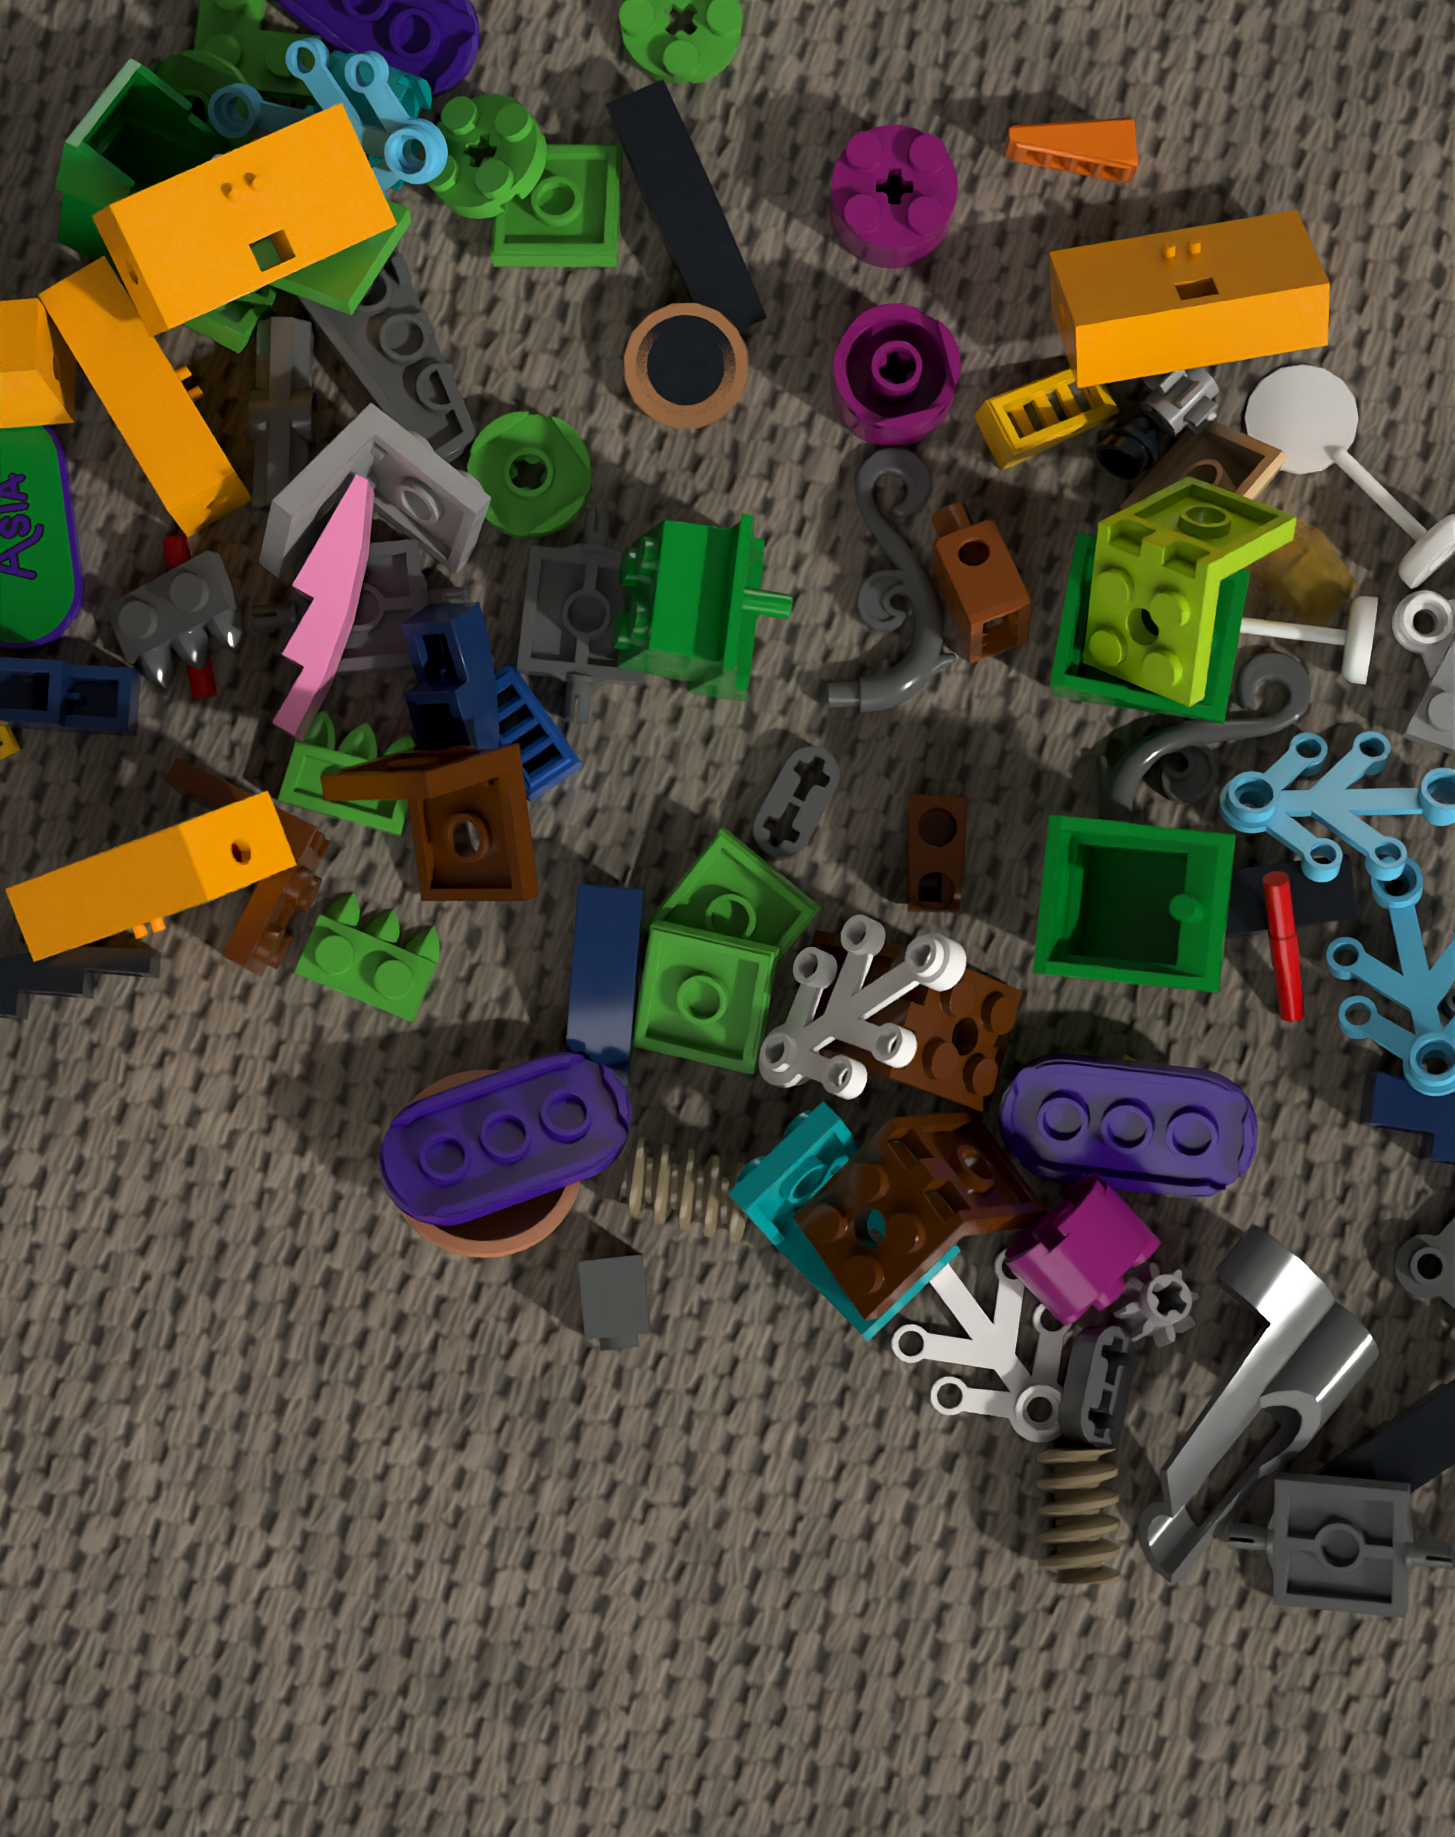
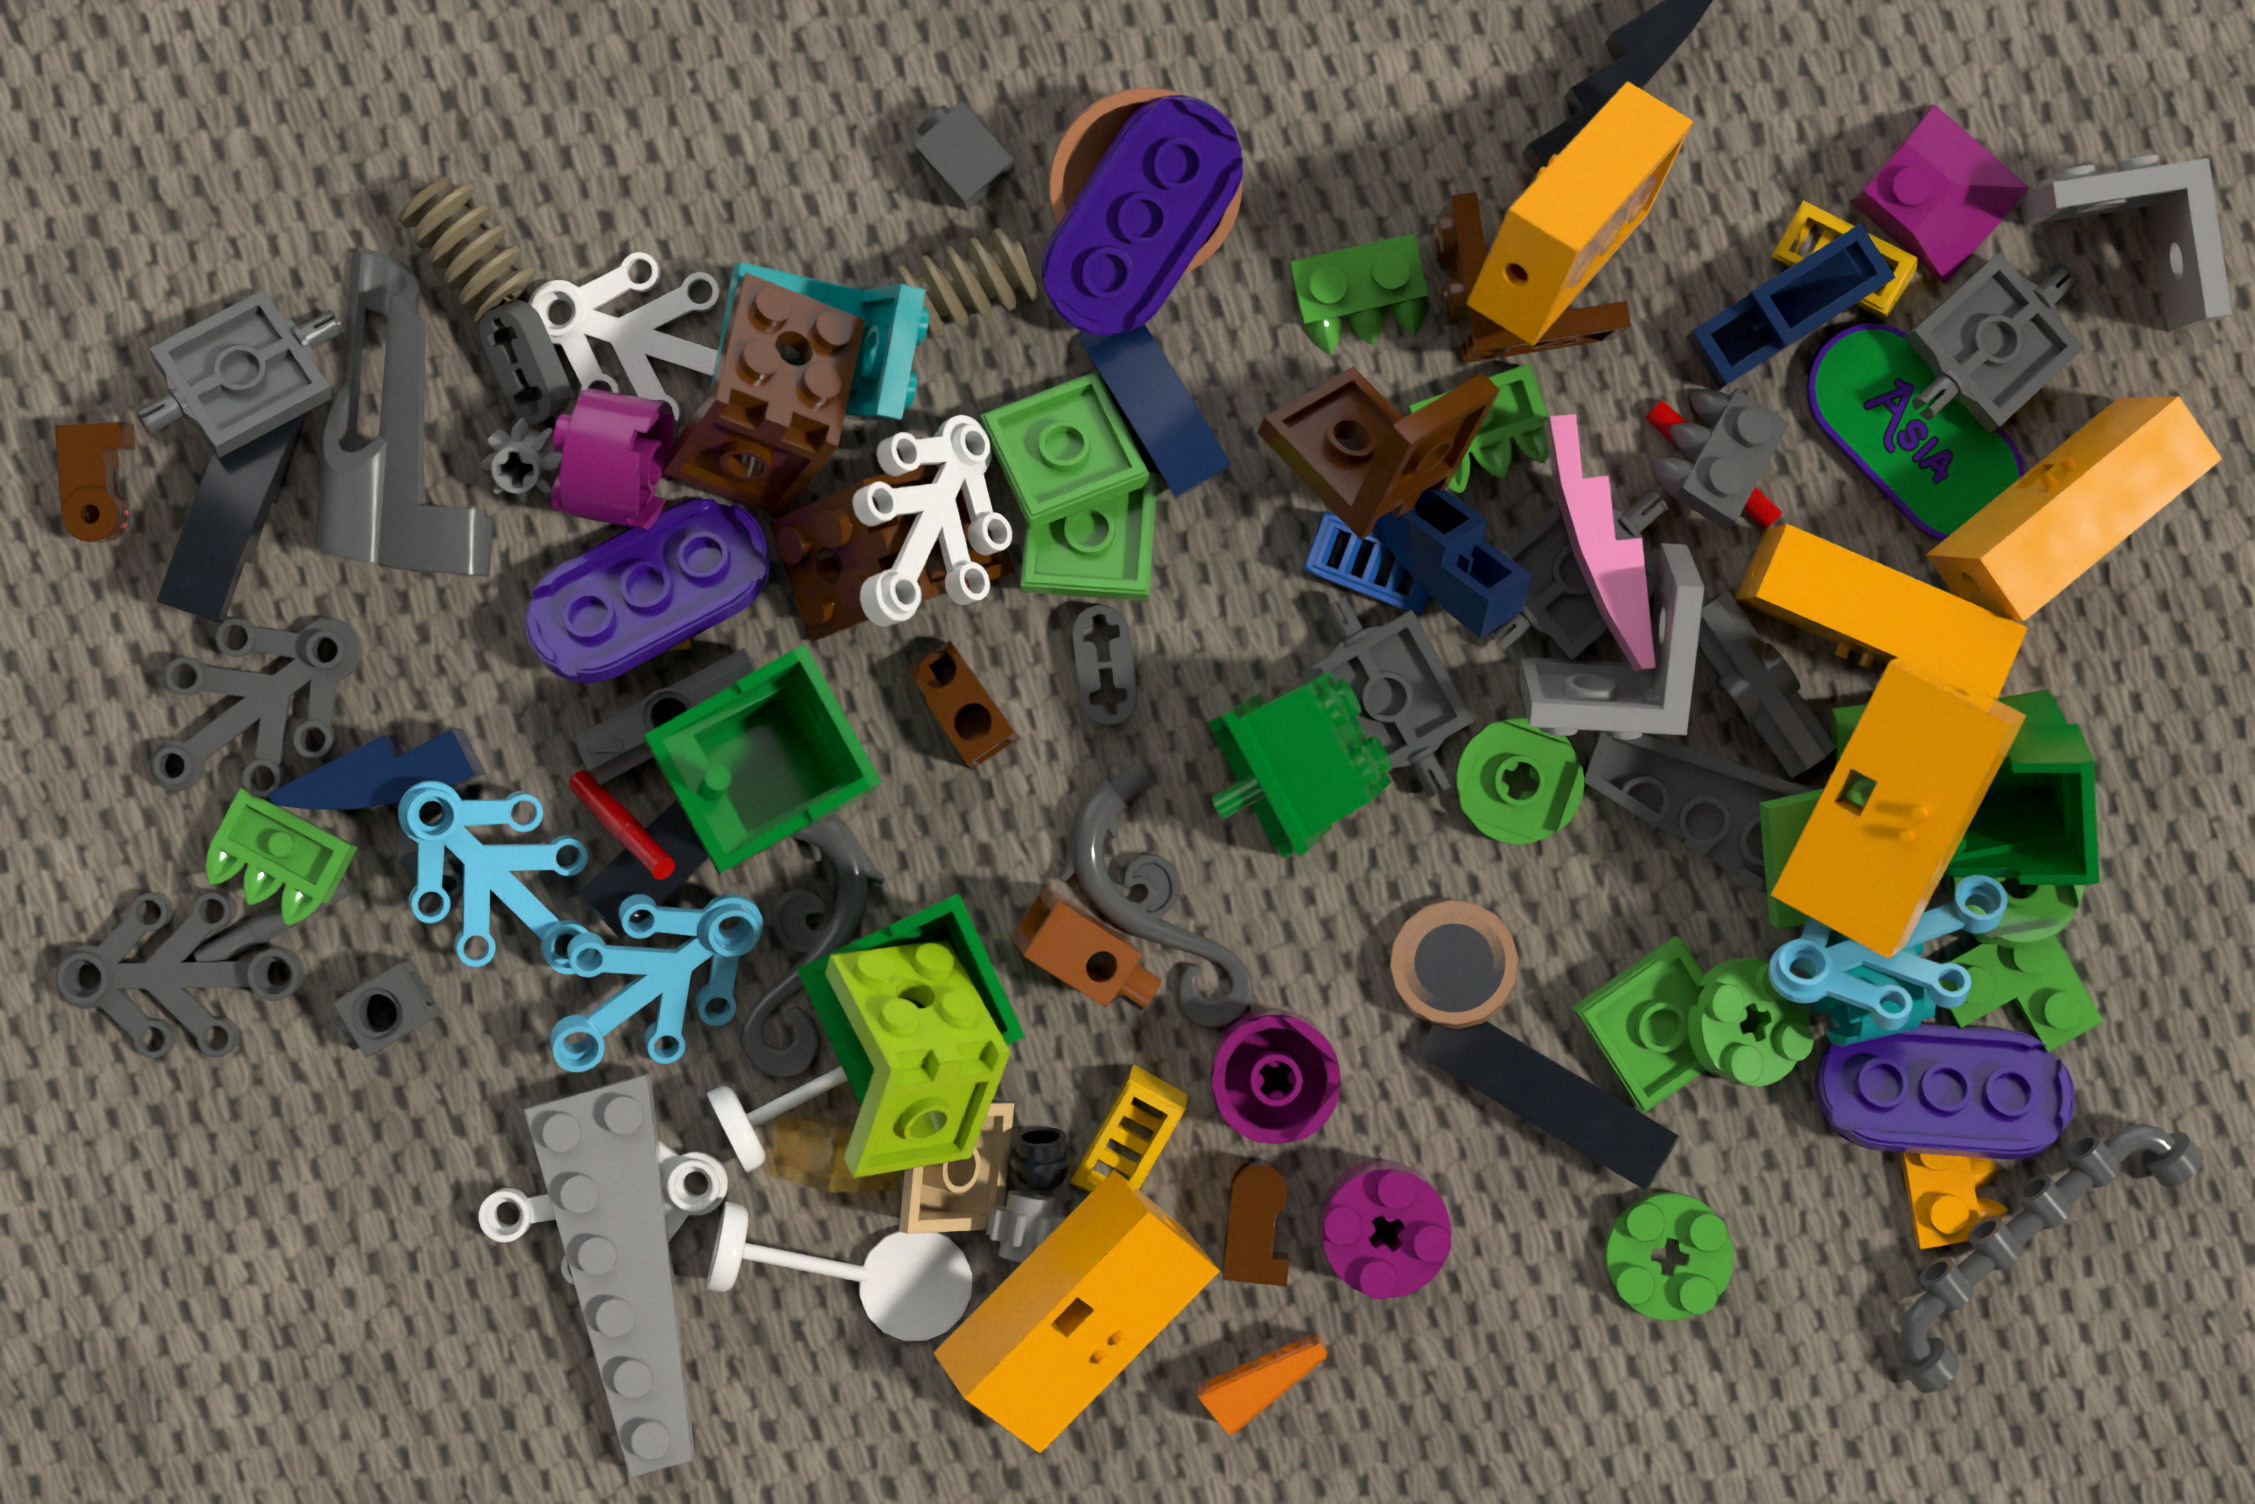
camera: 150 degrees right, 5 degrees up
(983, 289) = (1255, 1200): none -> reddish brown leg
(1222, 1017) = (618, 741): none -> dark grey piece

